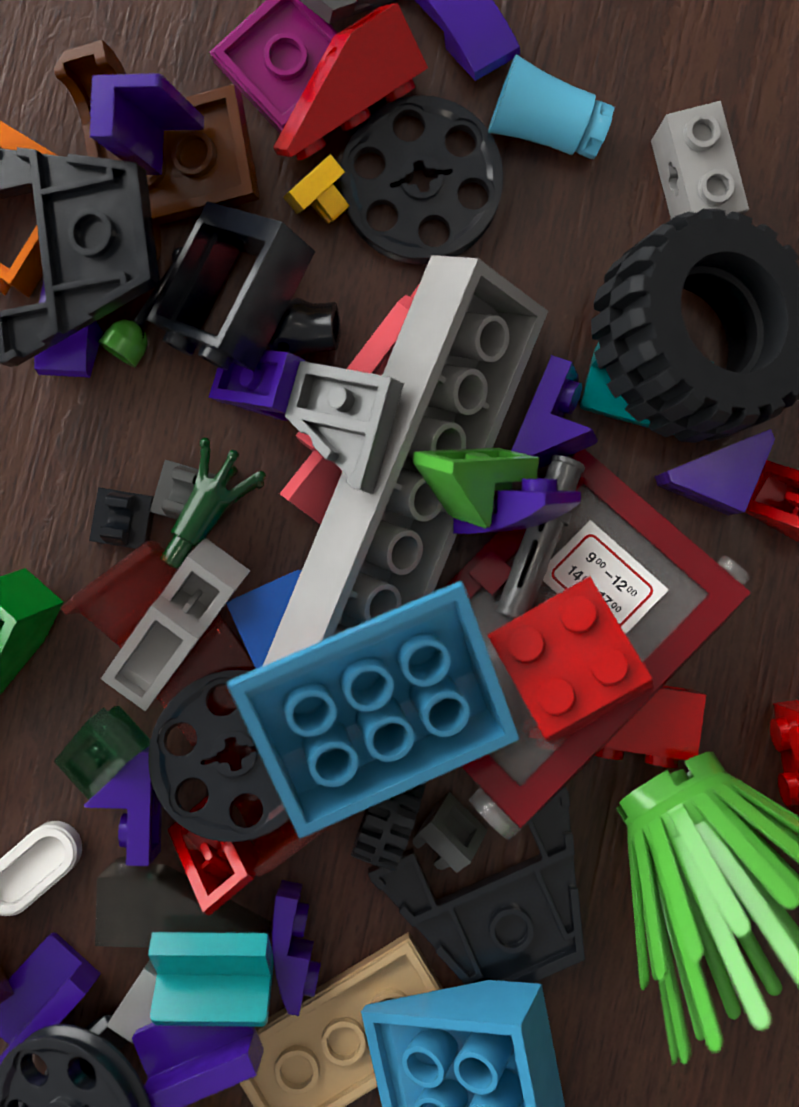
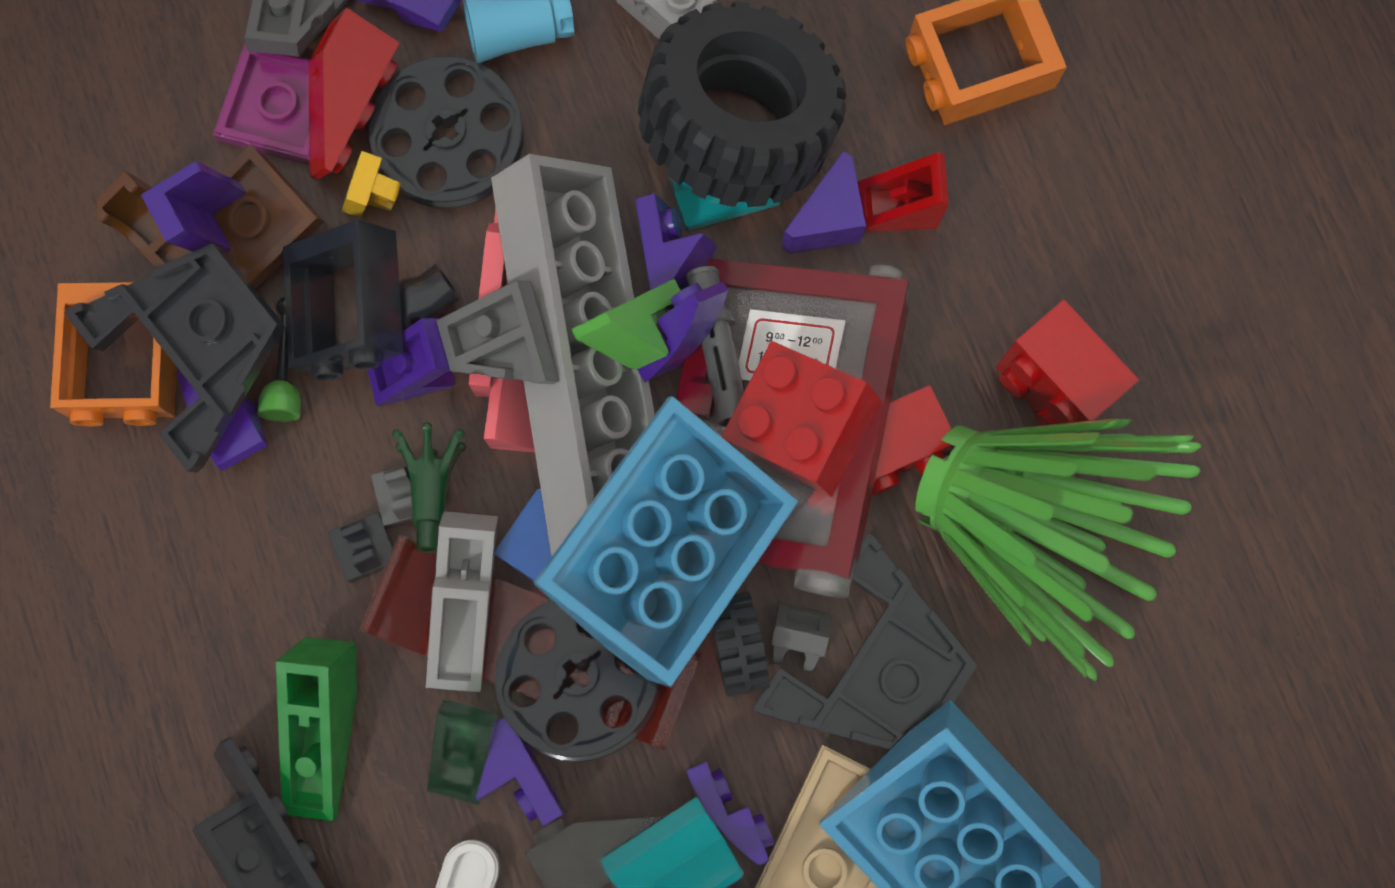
camera: 30 degrees left, 10 degrees down
(212, 866) = (615, 780): red slope -> none

